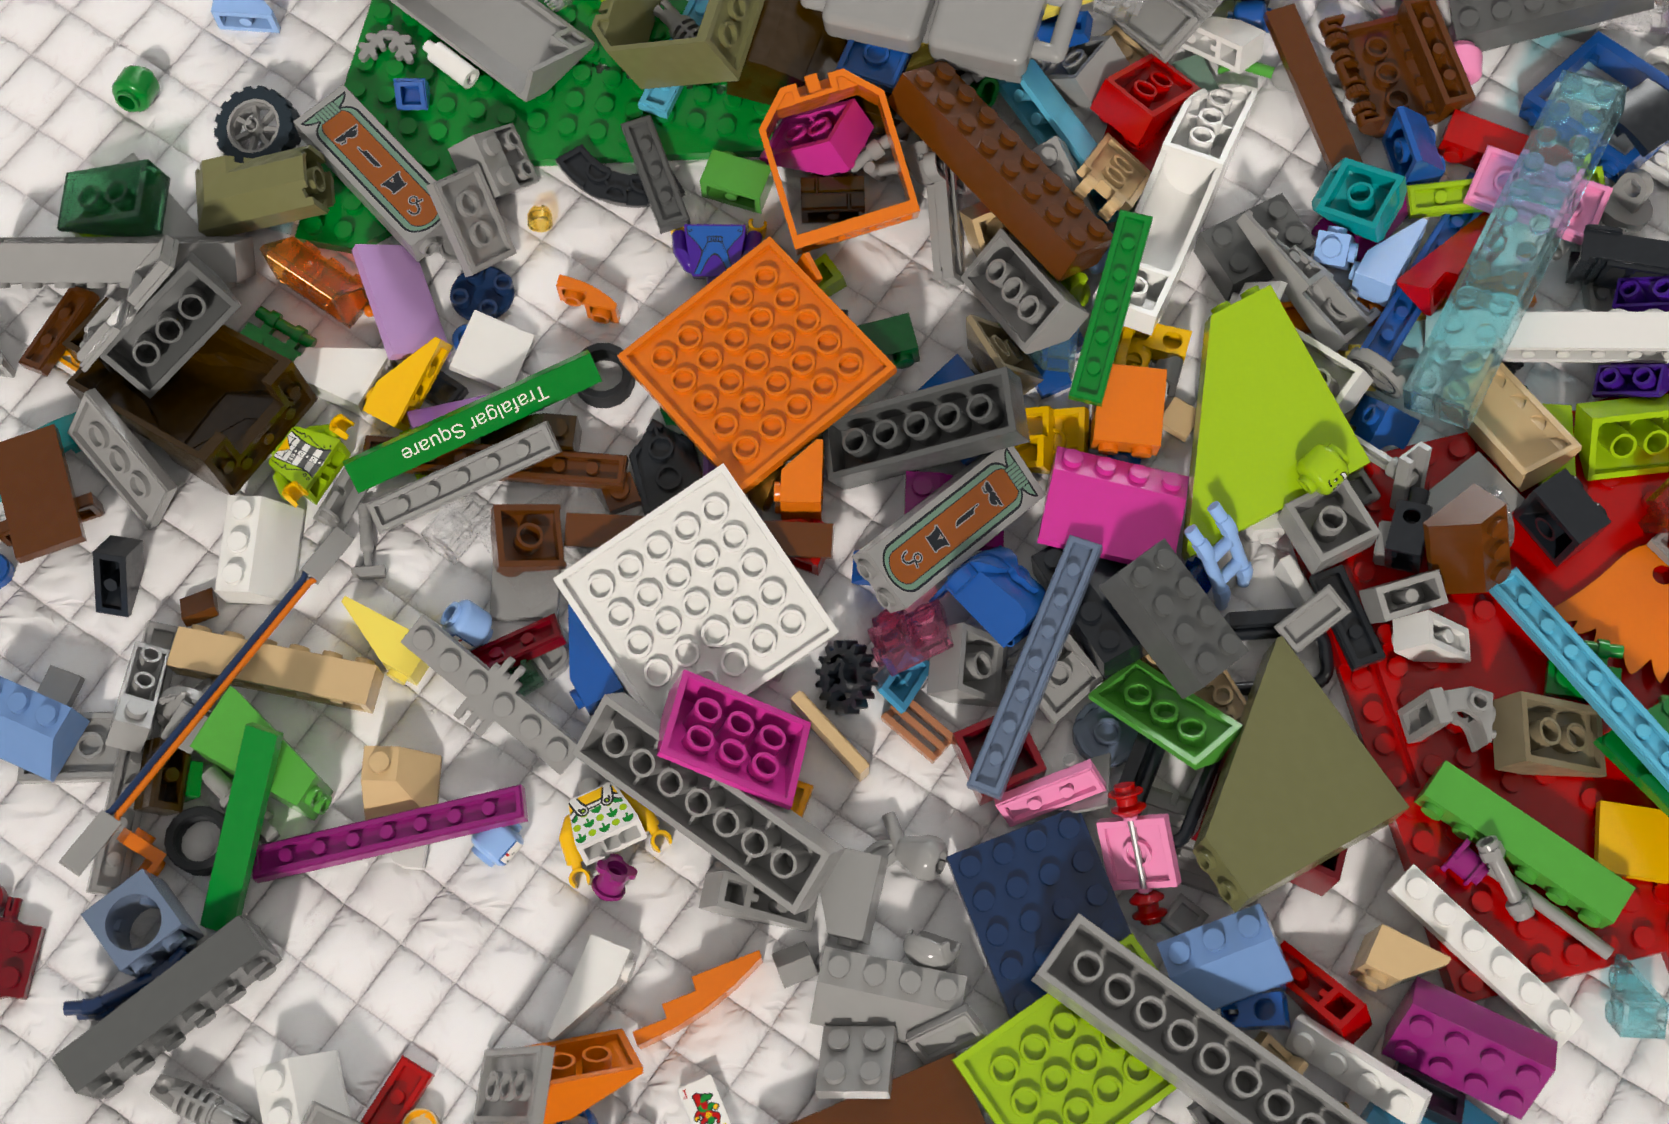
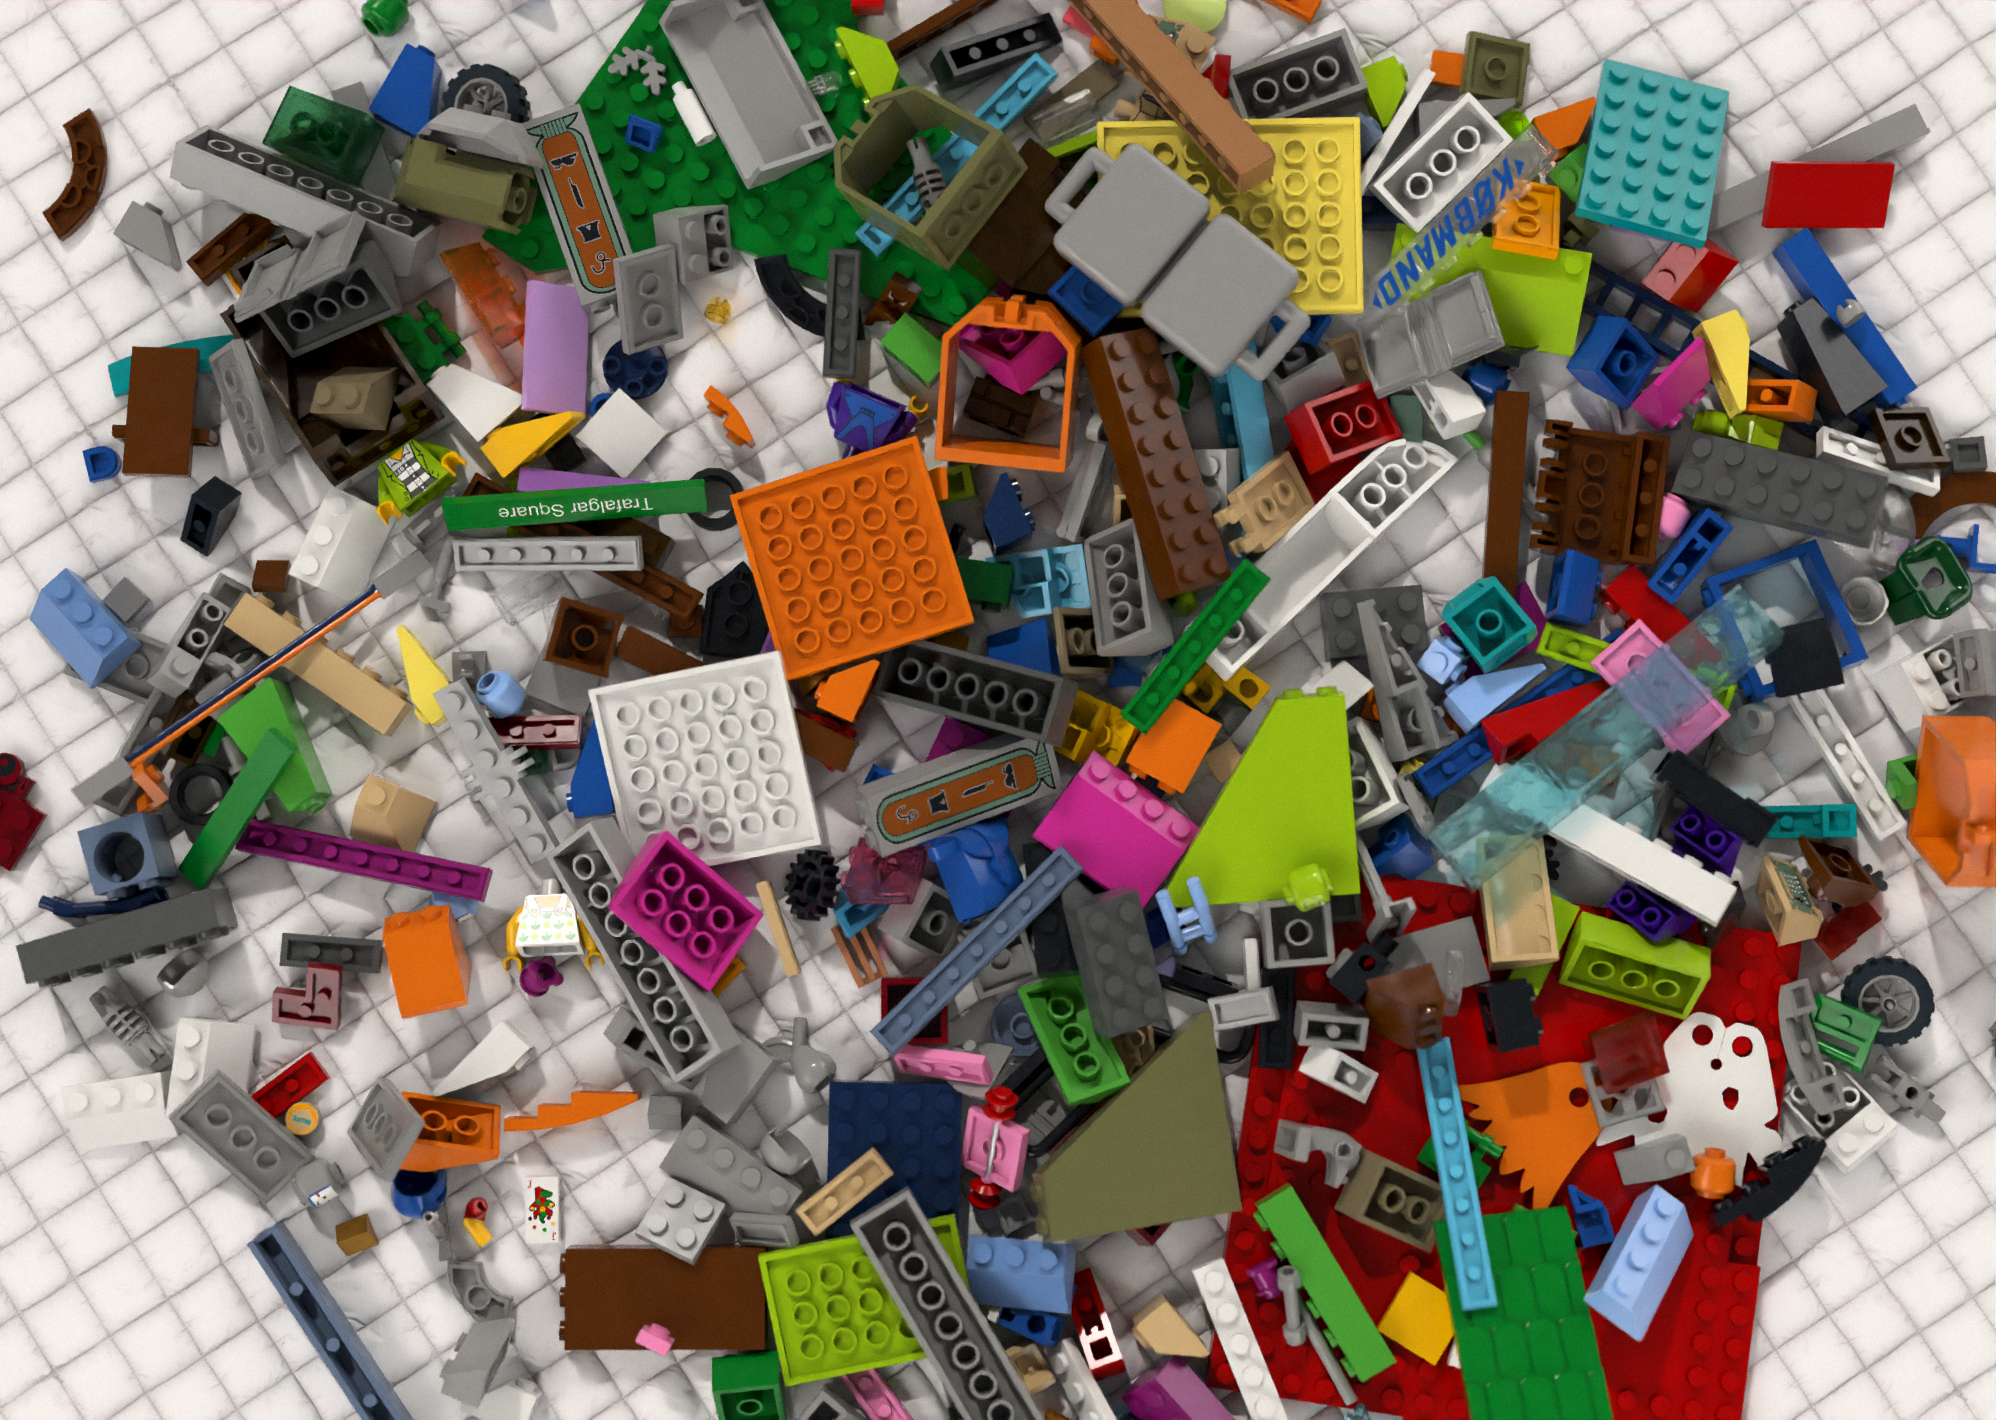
camera: 20 degrees right, 15 degrees up
(181, 142) = (409, 92): none -> blue slope
(226, 405) = (356, 398): none -> dark tan slope
(244, 1026) = (184, 974): none -> light grey hair
(262, 136) = (483, 135): none -> light grey wedge
(389, 943) = (351, 953): none -> dark grey plate
(396, 997) = (317, 1005): none -> plate
(426, 606) = (469, 665): none -> light grey tile
(490, 901) = (426, 961): none -> orange slope
(698, 145) = (894, 301): none -> reddish brown slope
(885, 281) = (1004, 518): none -> dark blue slope
(941, 324) = (1048, 579): none -> medium azure slope
(1010, 958) = (844, 1191): none -> tan tile
(1499, 80) = (1688, 554): none -> blue slope

